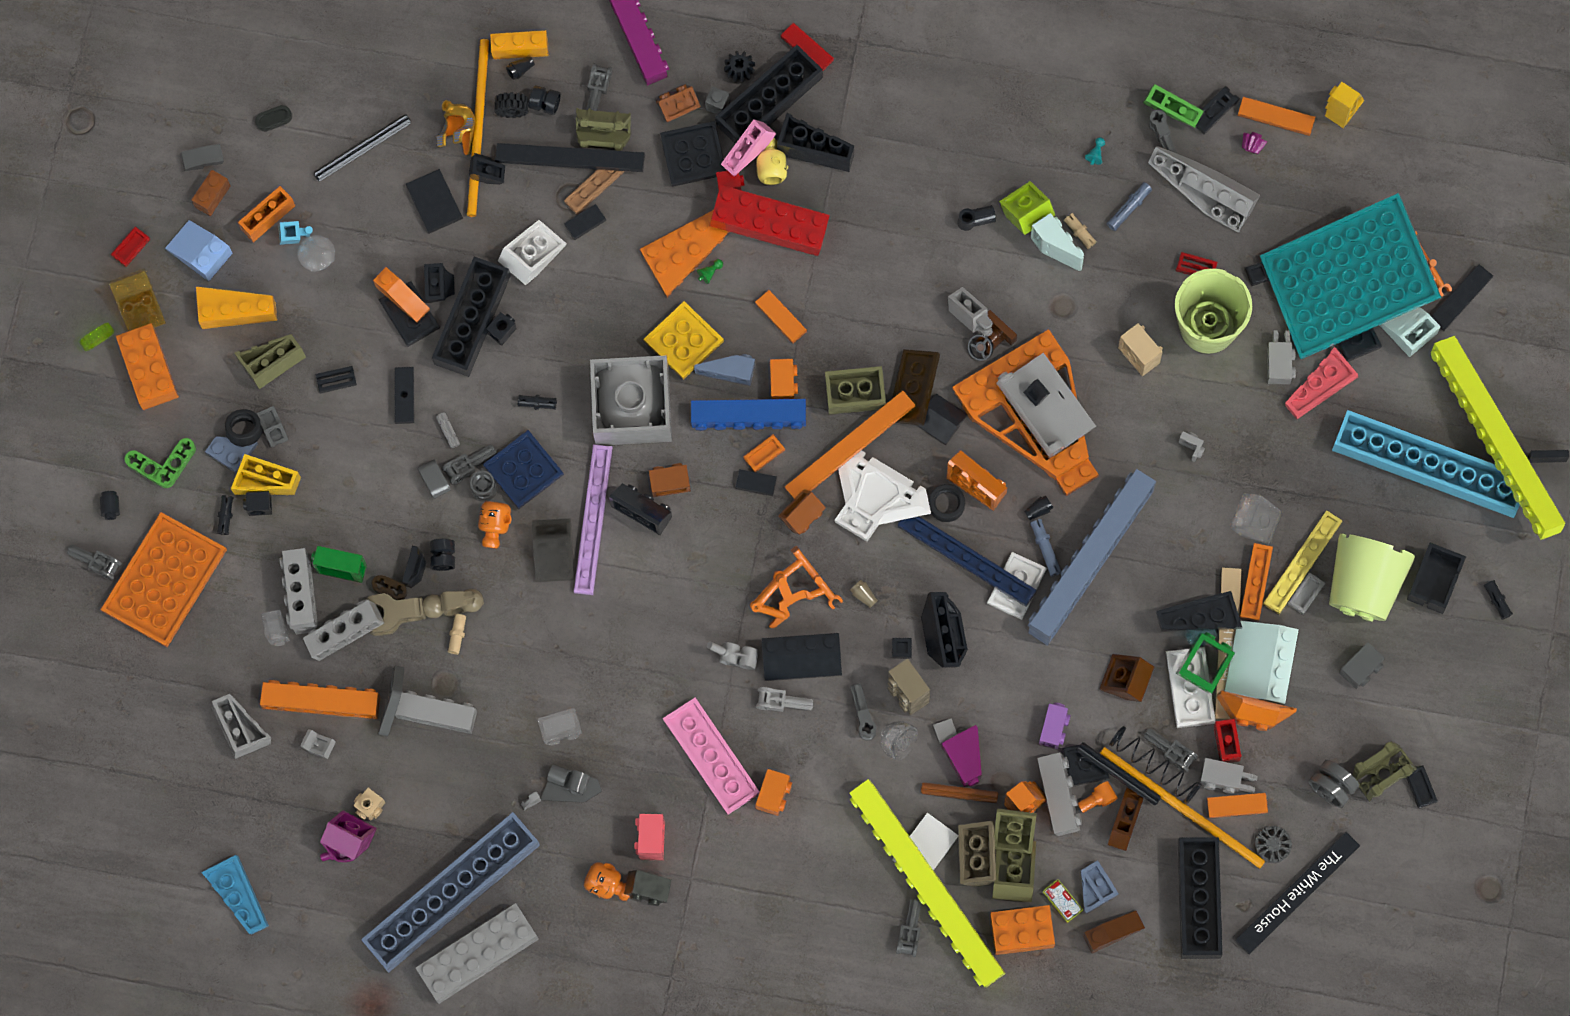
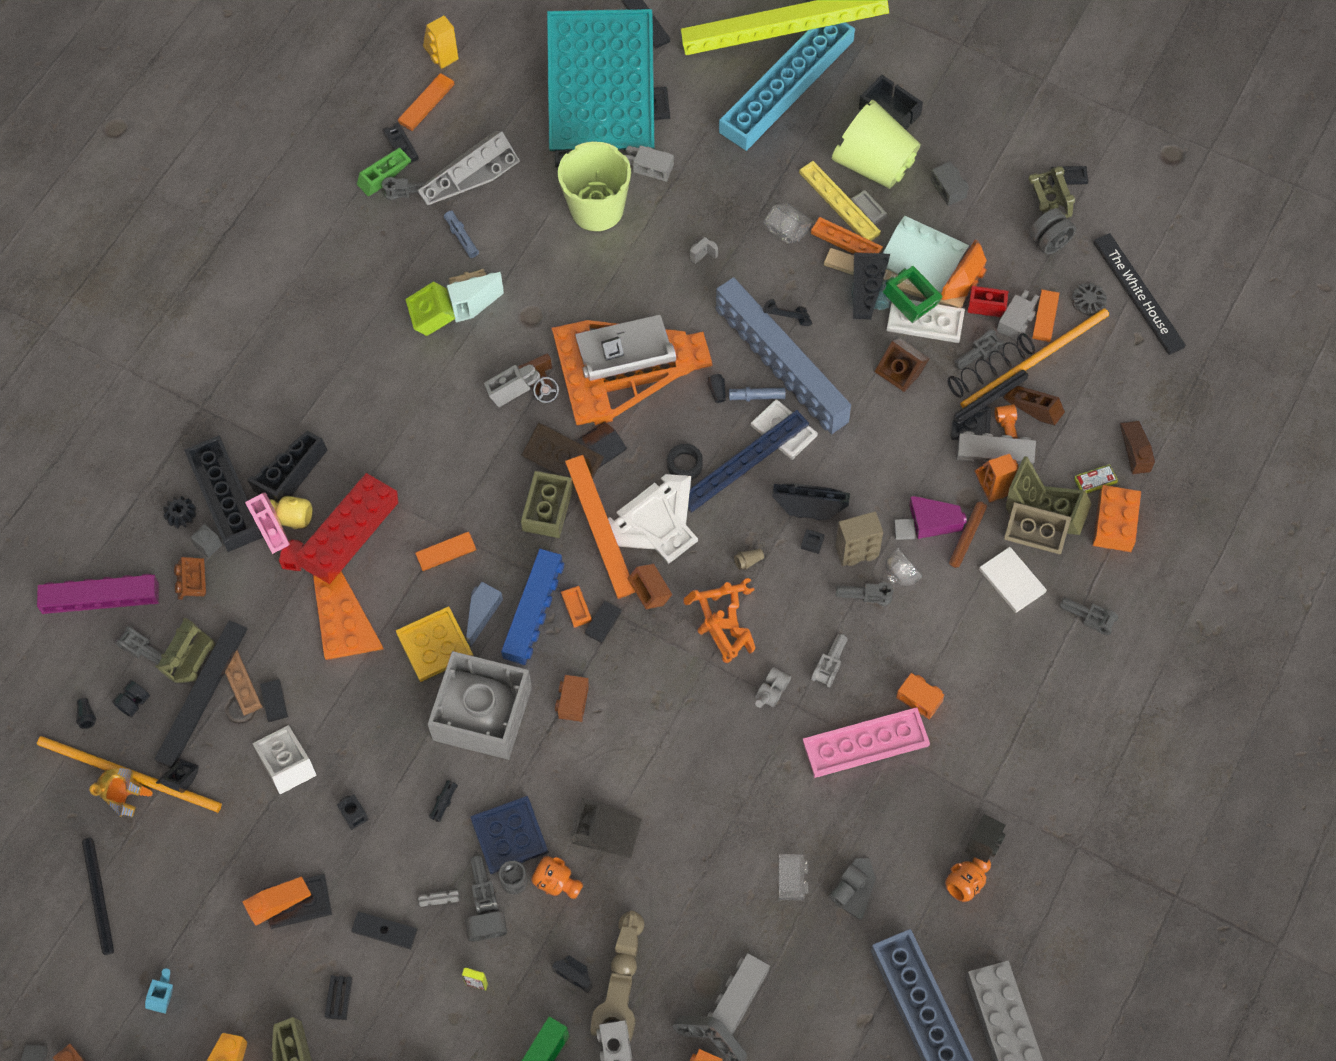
camera: 75 degrees left, 10 degrees down
(266, 214) = (127, 1014): orange brick -> none
(273, 118) = (22, 979): pearl dark grey tile -> none
(316, 253) = (191, 977): clear dish -> none
(381, 485) = (475, 979): none -> tile
(391, 584) = (582, 1004): dark brown beam -> none
(434, 201) = (187, 840): black tile -> none
(438, 282) = (277, 862): black slope -> none
(442, 554) = (564, 937): black wheel -> none
(457, 634) = (660, 952): tan pin -> none
(471, 316) = (329, 836): black brick -> none
(511, 105) = (122, 730): black tyre -> none
(519, 44) = (61, 706): light orange brick -> none
(533, 799) = (860, 929): light grey tile -> none
(593, 519) = (585, 784): lavender tile -> none
(641, 508) = (593, 732): black slope -> none
(651, 836) = (935, 819): coral container -> none
(692, 153) = (248, 580): black plate -> none
(707, 272) = (375, 603): green piece -> none
(783, 379) = (510, 566): orange brick -> none
(795, 36) = (176, 455): red tile -> none
(801, 656) = (793, 630): black slope -> none
(927, 883) = (1049, 585): neon yellow brick -> none
(975, 480) = (674, 429): orange wedge -> none
(978, 217) = (419, 356): black piece -> none
(1053, 726) = (929, 436): medium lavender brick -> none
(1094, 155) = (401, 247): teal piece -> none
(1096, 887) = (1091, 447): sand blue wing -> none
(1130, 527) = (799, 313): none -> black hinge
(1140, 349) = (601, 260): tan container -> none
(1195, 266) = (534, 211): red tile -> none
(1200, 898) = (1127, 365): black brick -> none
(1253, 142) = (444, 123): magenta piece -> none
(1321, 384) = (684, 139): coral wing -> none
(1411, 330) = (666, 57): light aqua slope -> none
(1498, 599) = (933, 71): black pin -> none

